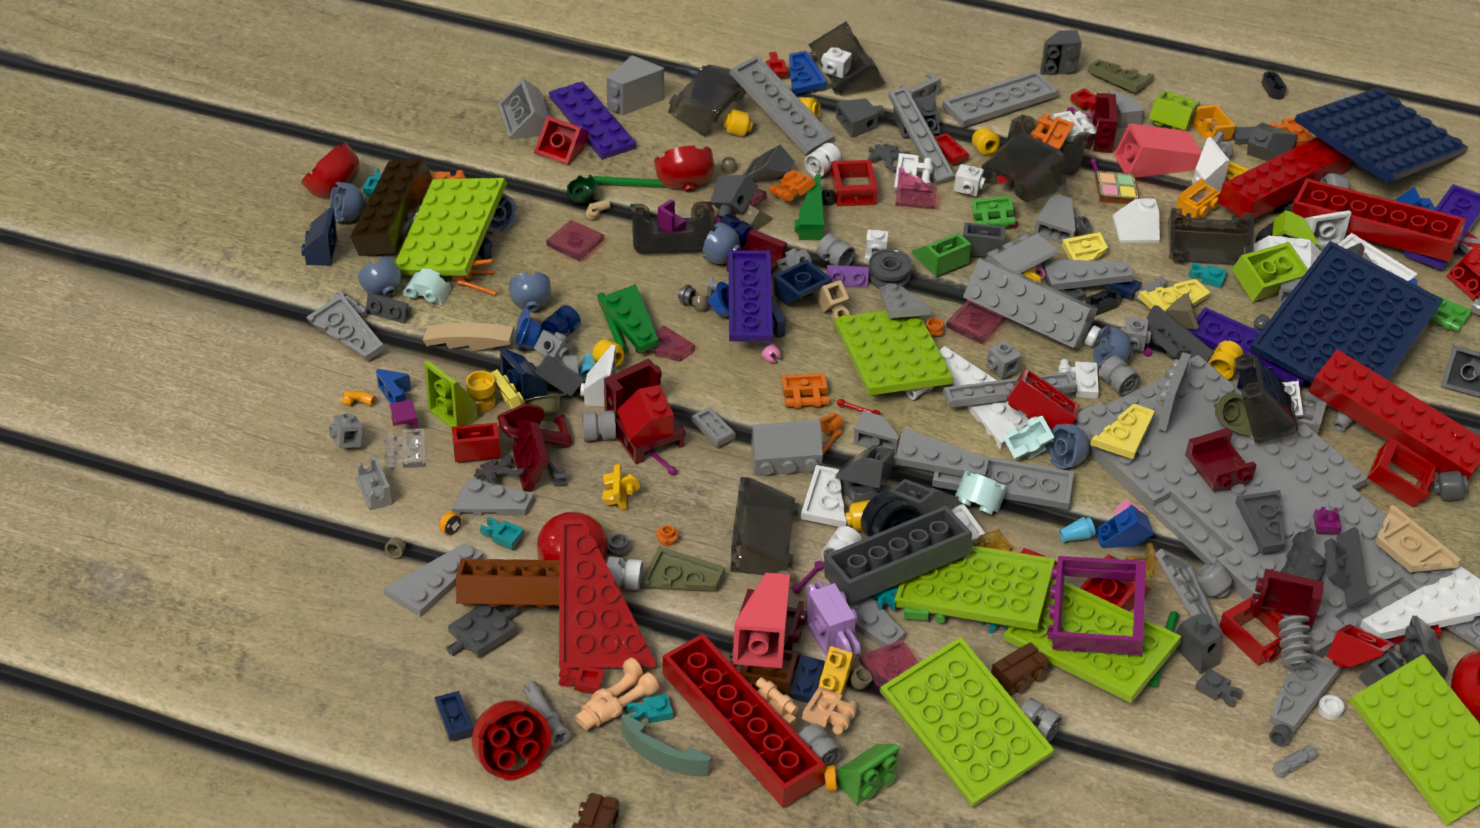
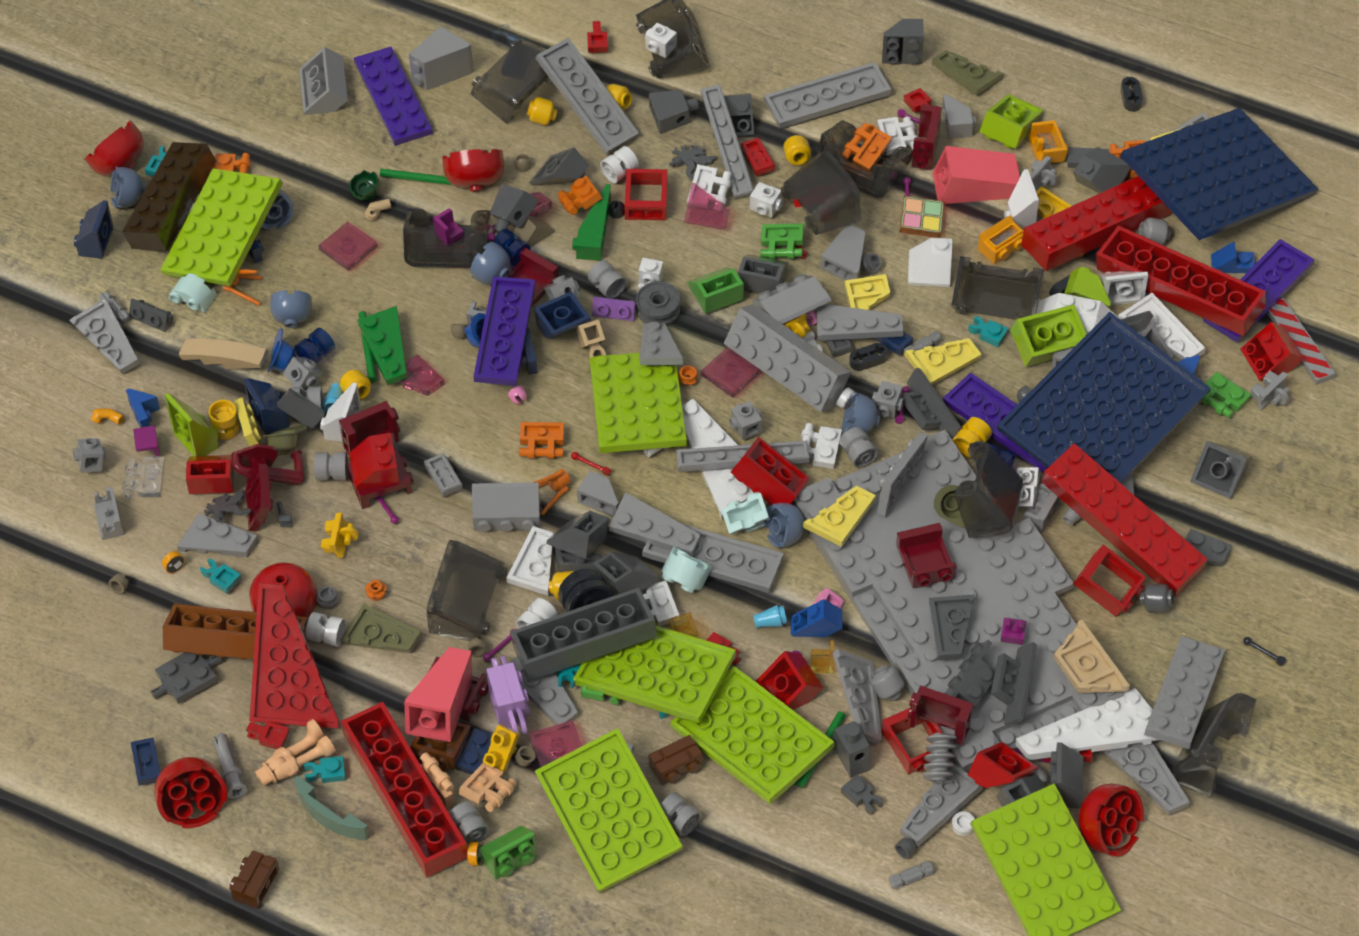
camera: 10 degrees right, 10 degrees up
(381, 277) = (146, 282): sand blue cylinder -> none
(431, 582) = (145, 622): light grey wing -> none
(561, 140) = (354, 122): red slope -> none
(685, 294) = (446, 319): flat silver plate -> none
(805, 74) = (626, 50): blue wing -> none
(927, 88) = (746, 80): light grey hinge -> none
(1102, 569) = (768, 666): magenta window -> none
(1184, 312) = (945, 378): dark tan slope -> none

